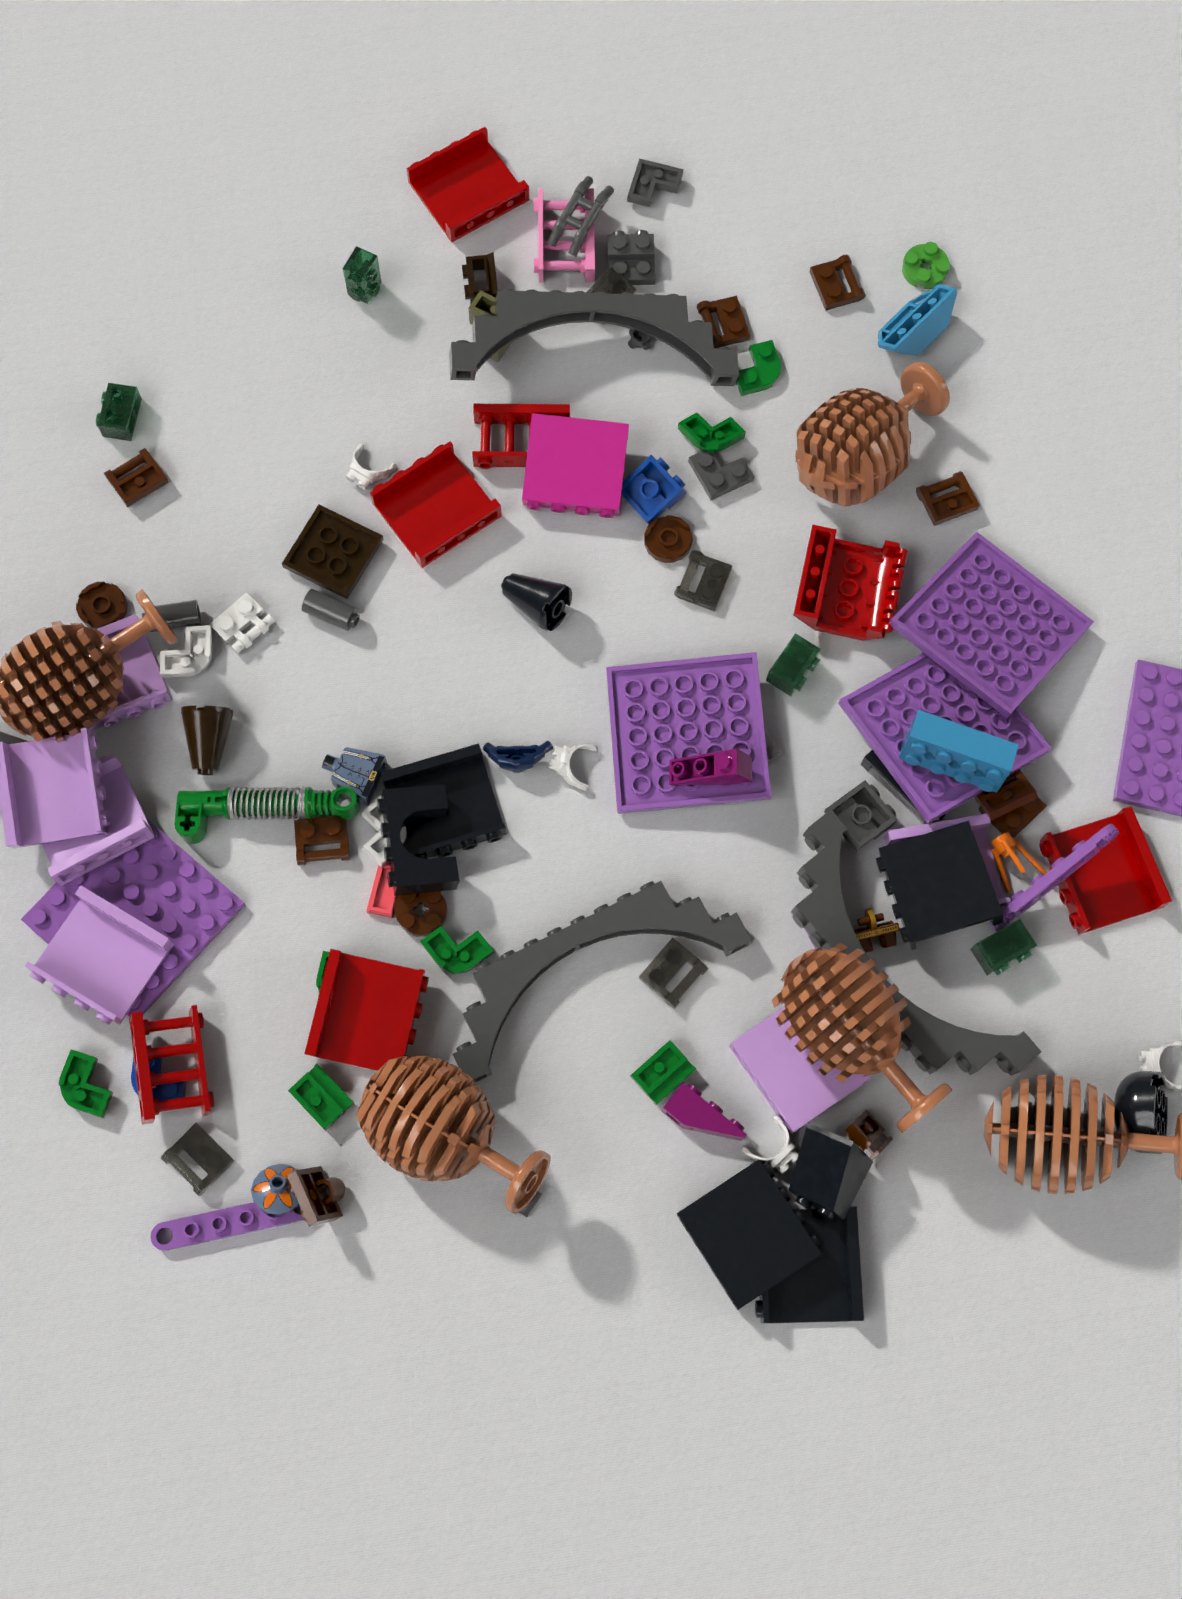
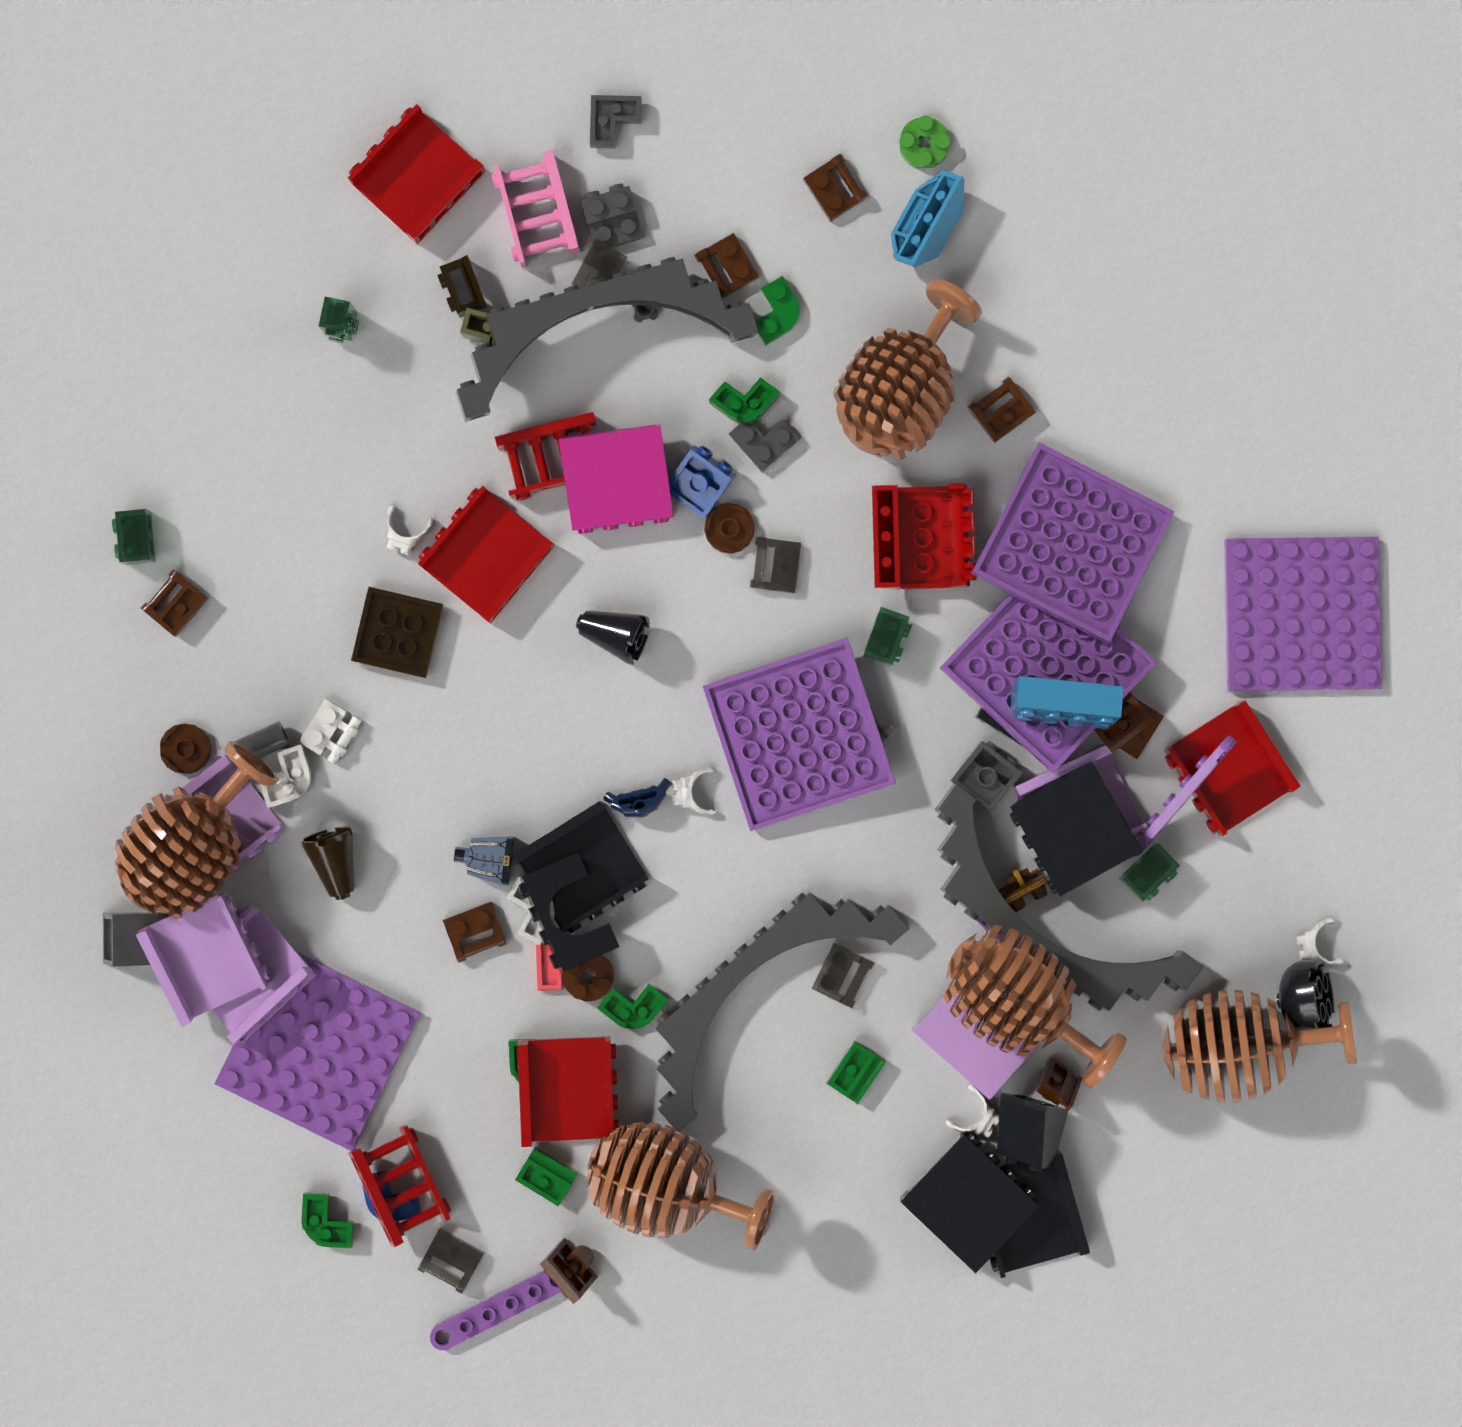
camera: 10 degrees left, 15 degrees up
(101, 957) = (303, 1104): lavender panel -> none
(253, 803) = (403, 914): green piece -> none
(271, 1198) = (529, 1282): sand blue dish -> none
(330, 610) = (414, 696): dark grey brick -> none
(583, 227) = (534, 197): dark grey piece -> none
(695, 1114) = (896, 1104): magenta slope -> none
(714, 768) = (831, 773): magenta slope -> none
(1005, 846) = (1132, 770): orange plant -> none

